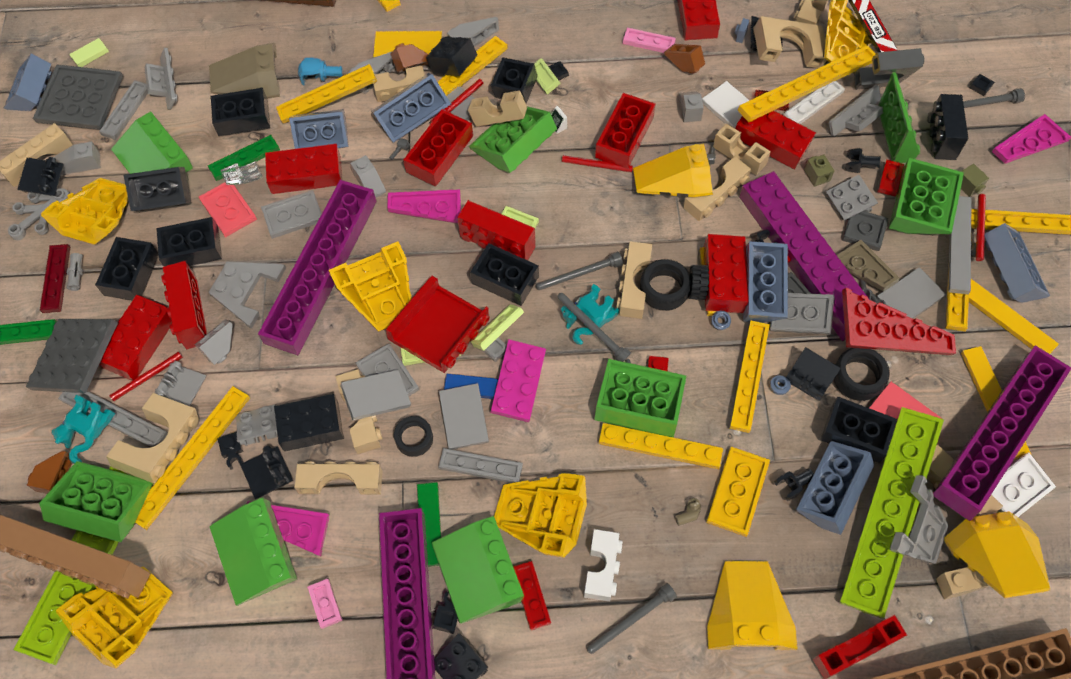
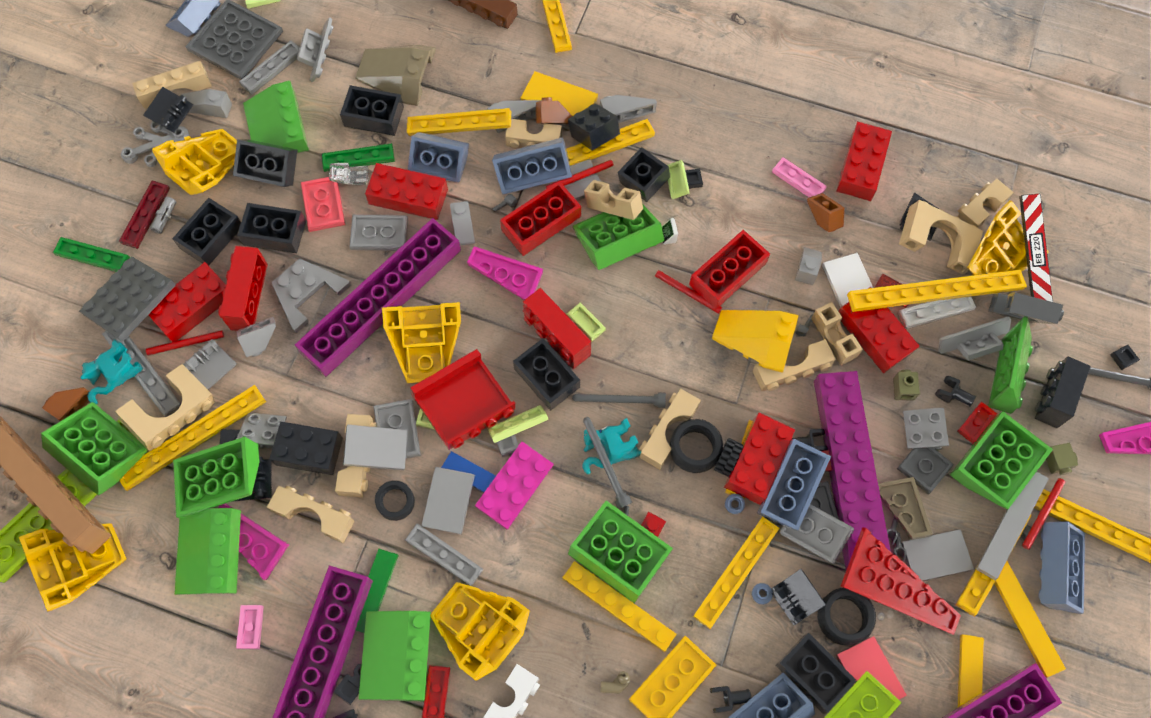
camera: 20 degrees right, 5 degrees up
(231, 477) = (215, 476): none -> bright green slope
(316, 66) = (460, 89): dark azure piece -> none
(741, 30) = (897, 203): sand blue plate -> none

